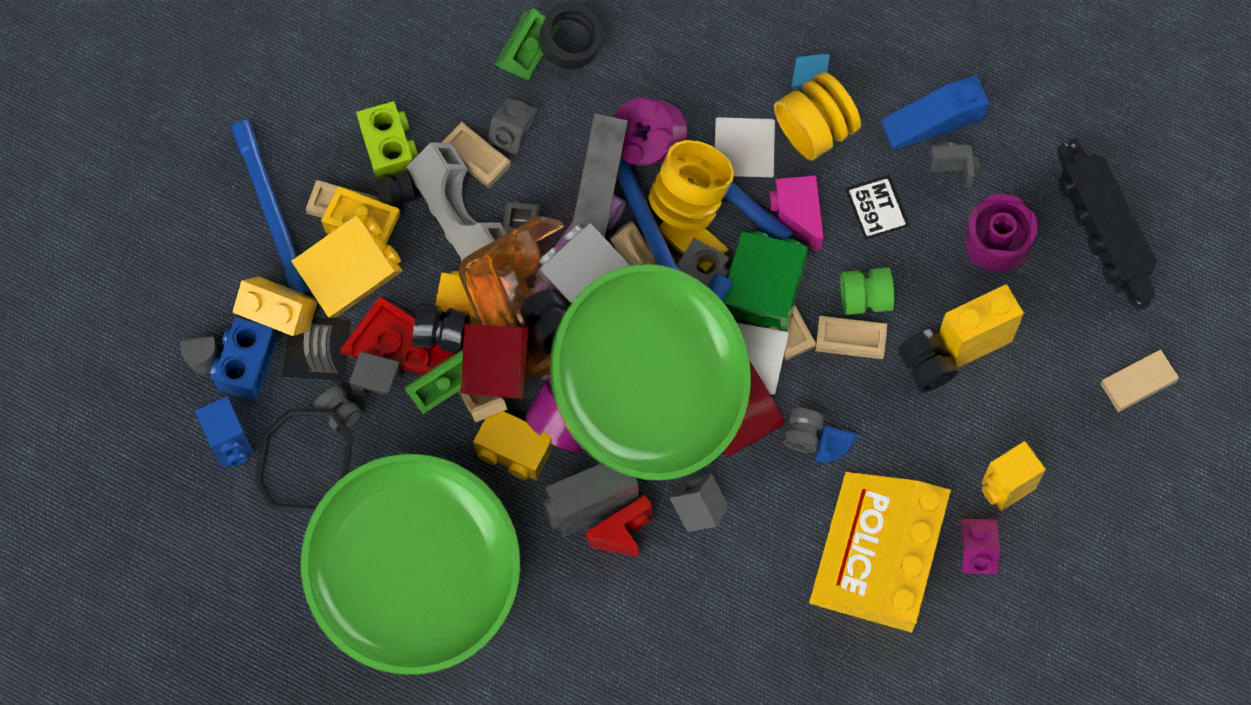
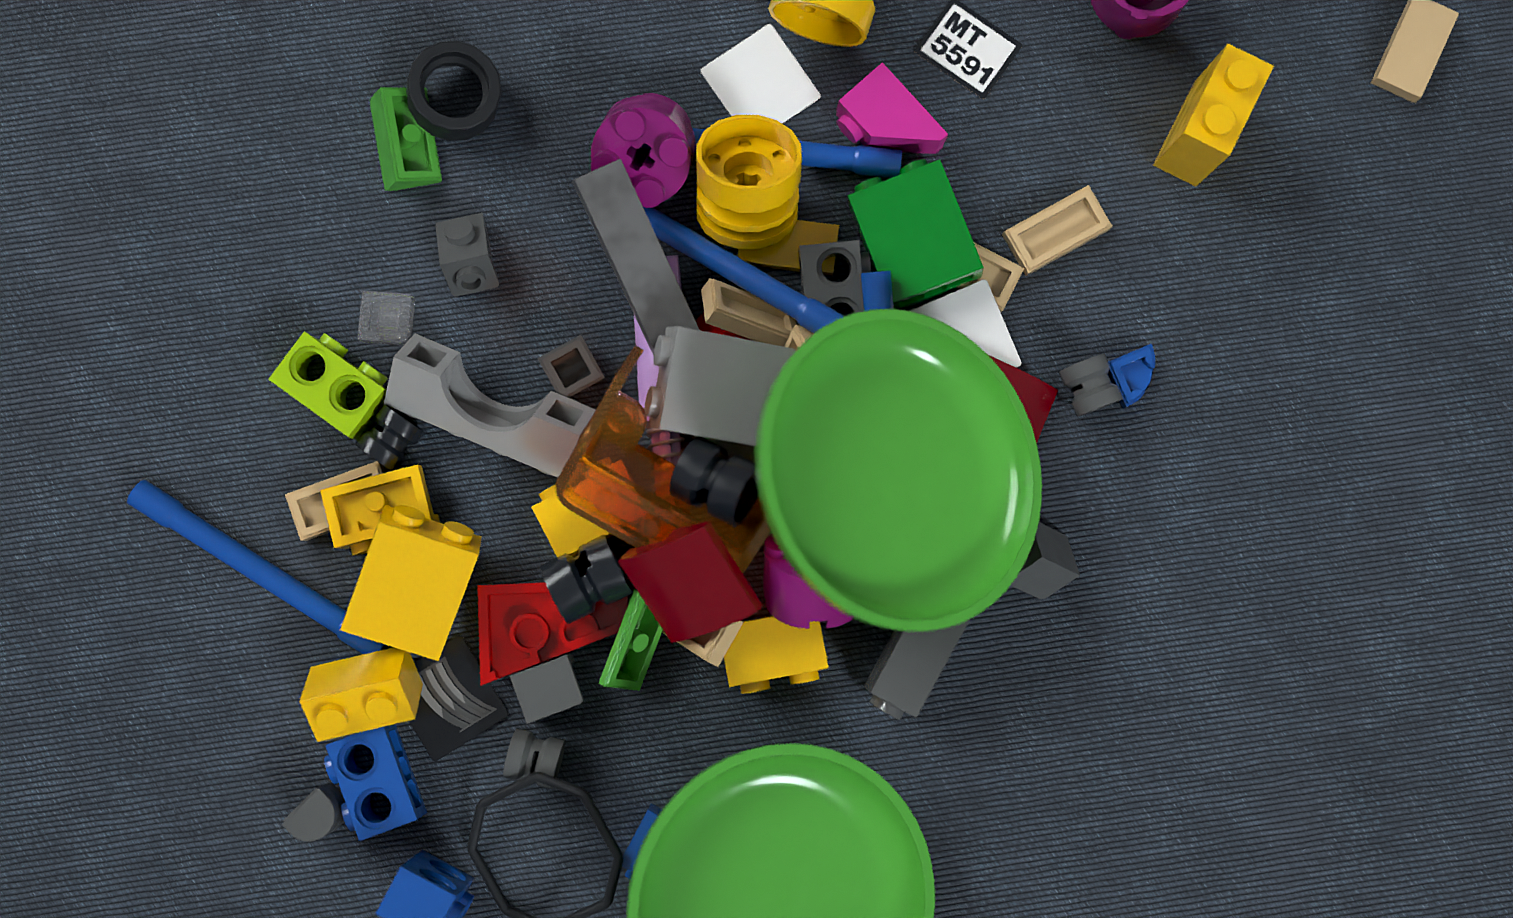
camera: 40 degrees left, 15 degrees up
(442, 124) = (386, 317): none -> clear tile
(478, 155) = (459, 322): tan tile -> none
(613, 532) = (965, 669): red slope -> none
(867, 291) = (1049, 156): bright green wheel -> none
(880, 549) = (1280, 462): yellow slope -> none
(926, 357) = (1172, 198): black wheel -> none
(980, 546) = (1382, 374): magenta bracket -> none
(1012, 476) = (1374, 271): yellow brick -> none

